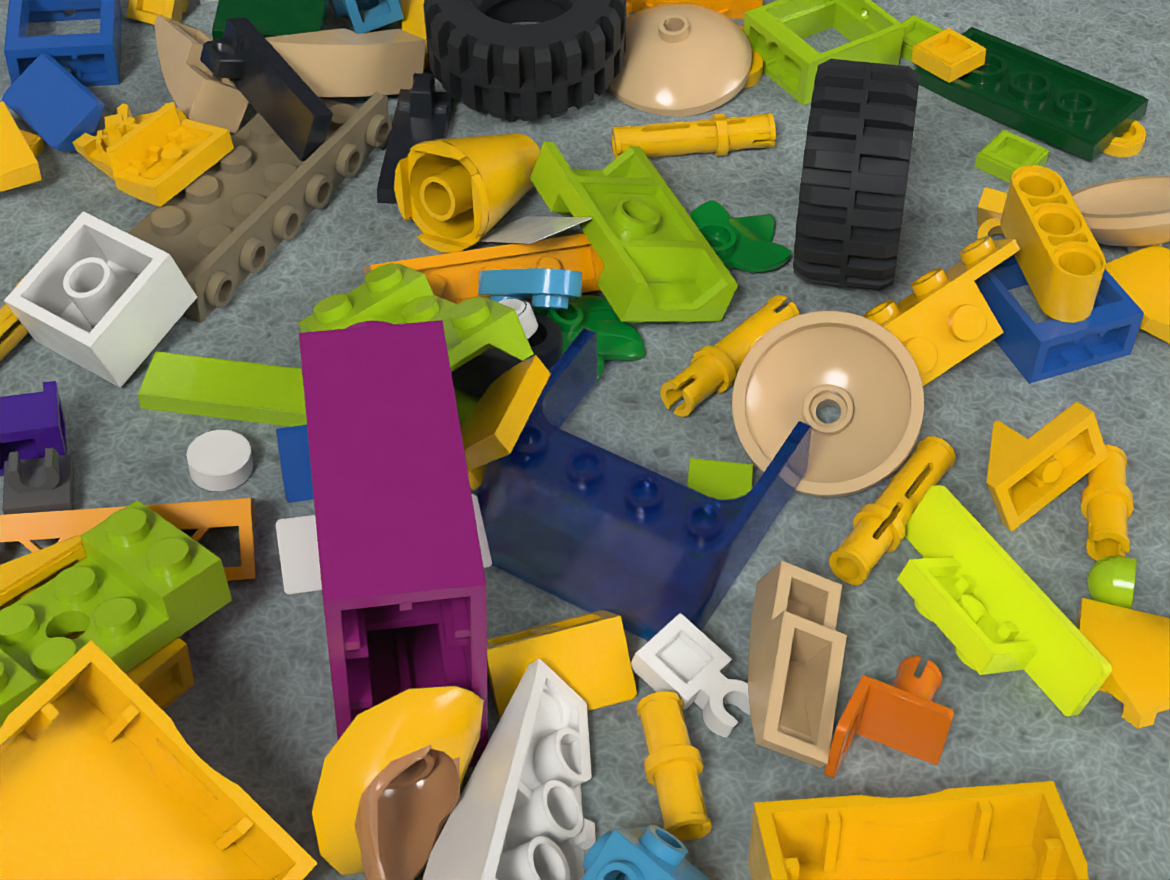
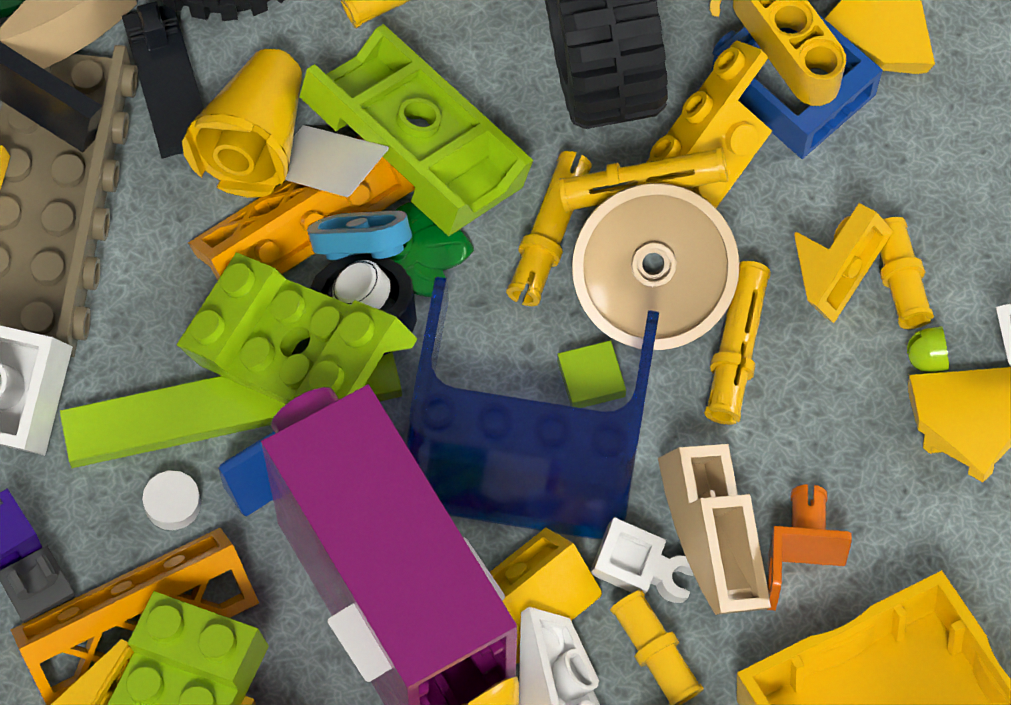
camera: 20 degrees left, 20 degrees up
(501, 416) = (405, 391): yellow slope -> none
(740, 241) = (504, 87): green plate -> none
(904, 321) = (579, 193): none -> yellow pin
(994, 607) = (841, 412): neon yellow bracket -> none

